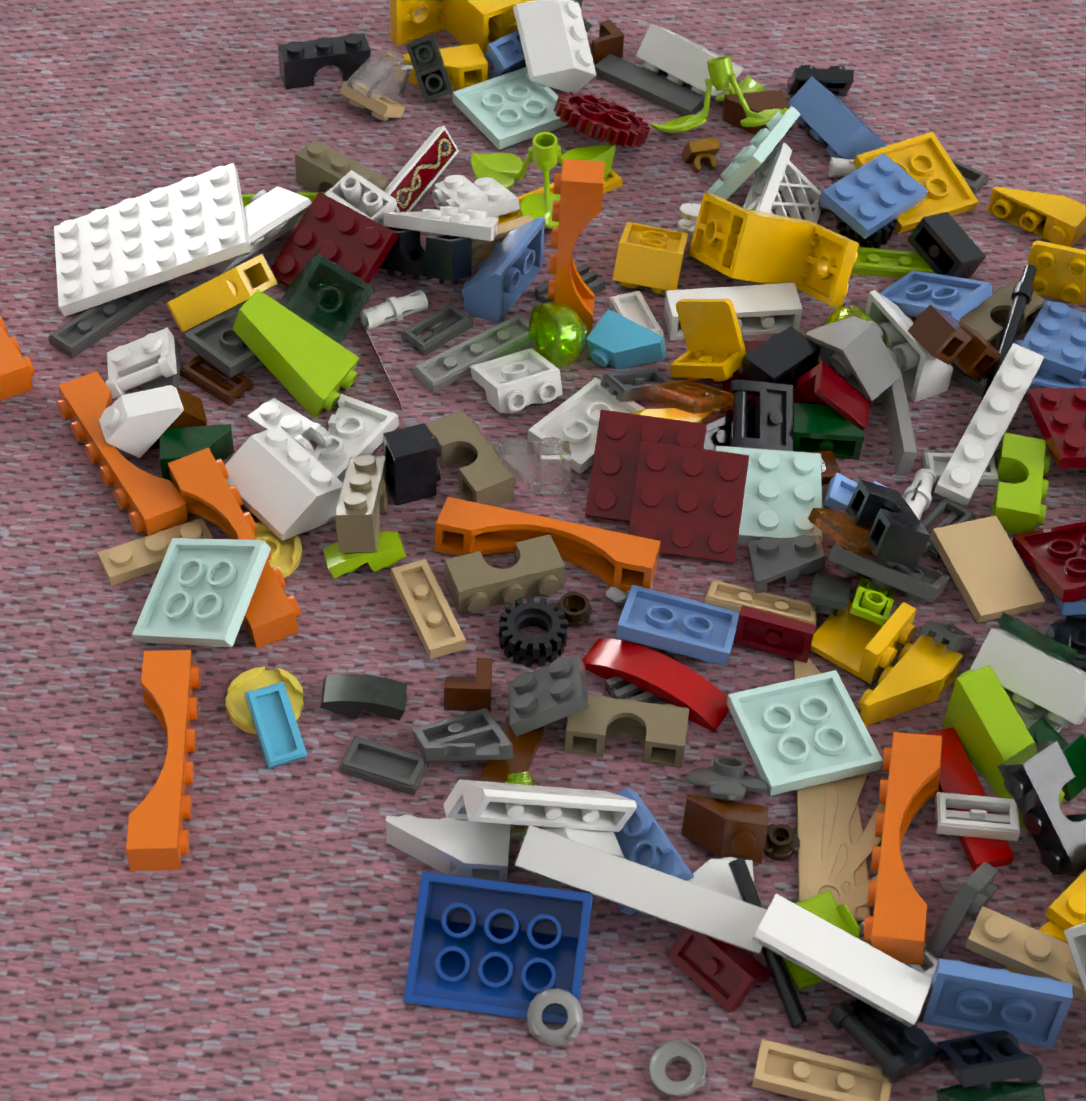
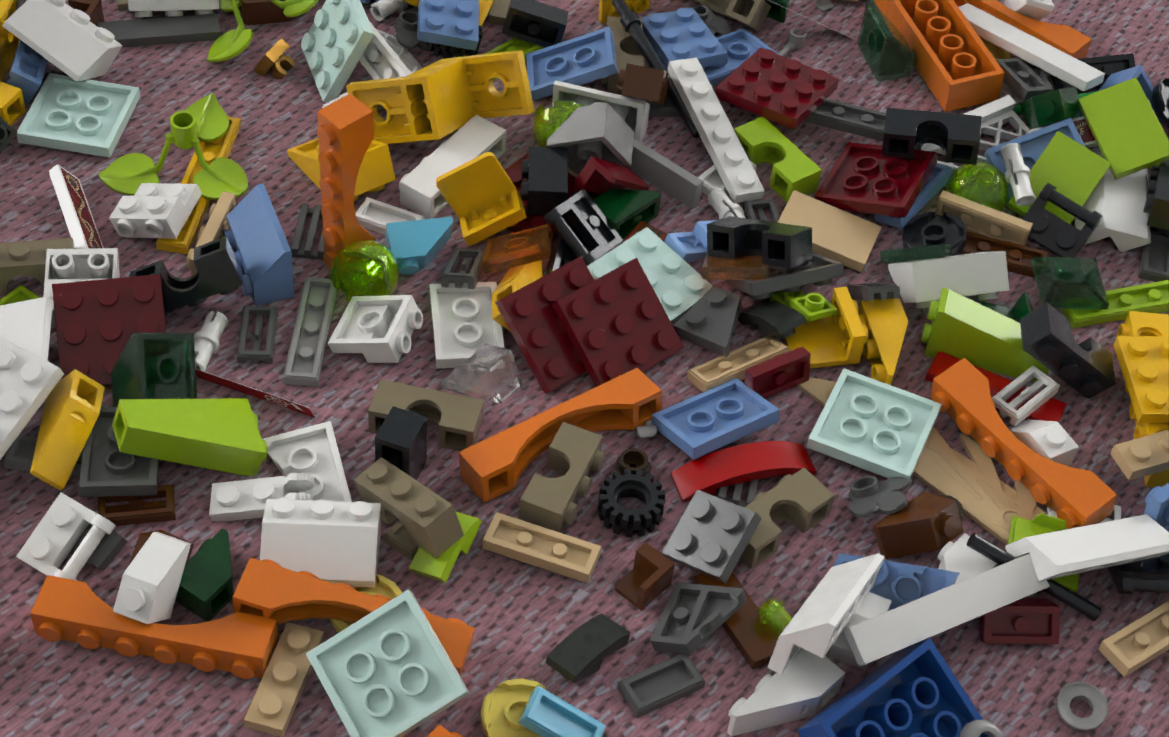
camera: 50 degrees left, 0 degrees up
(446, 222) = (180, 239): white wing -> none
(601, 119) = (173, 79): dark red gear -> none
(934, 866) = (1047, 439): none -> white slope
(972, 895) = (1095, 449): dark grey wing -> none

